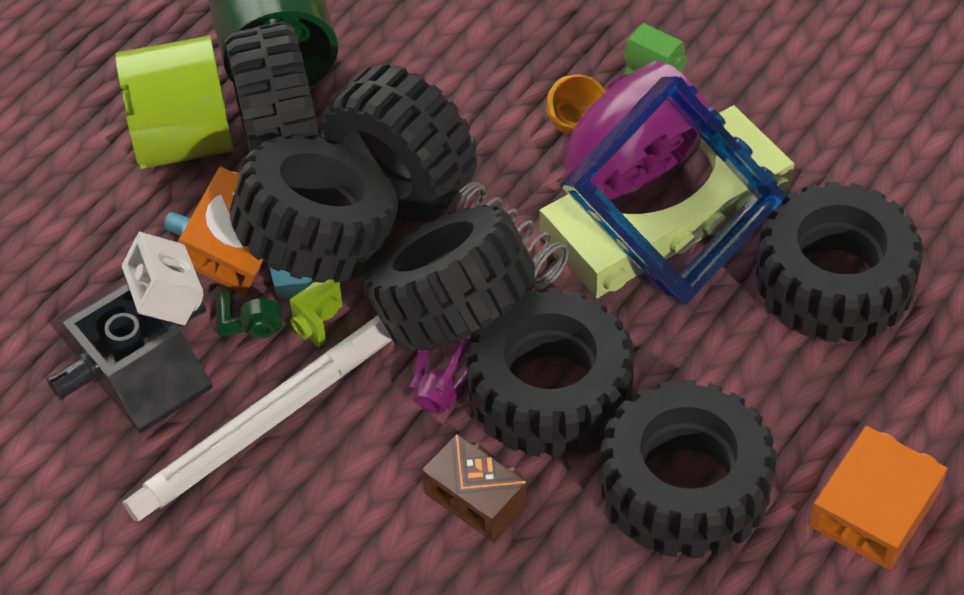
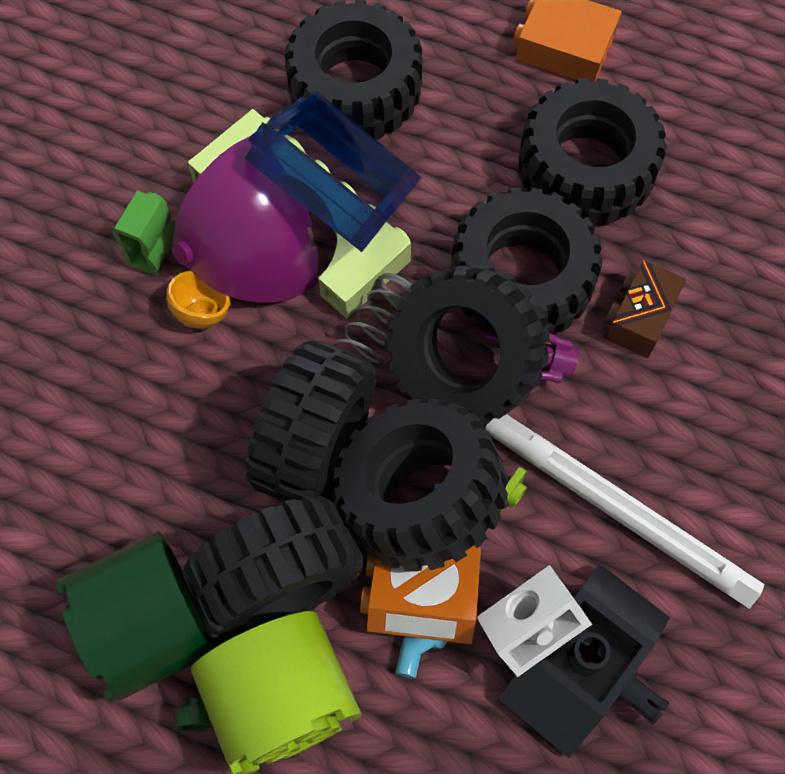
camera: 105 degrees left, 15 degrees up
(257, 317) = (517, 537): dark green plate -> none

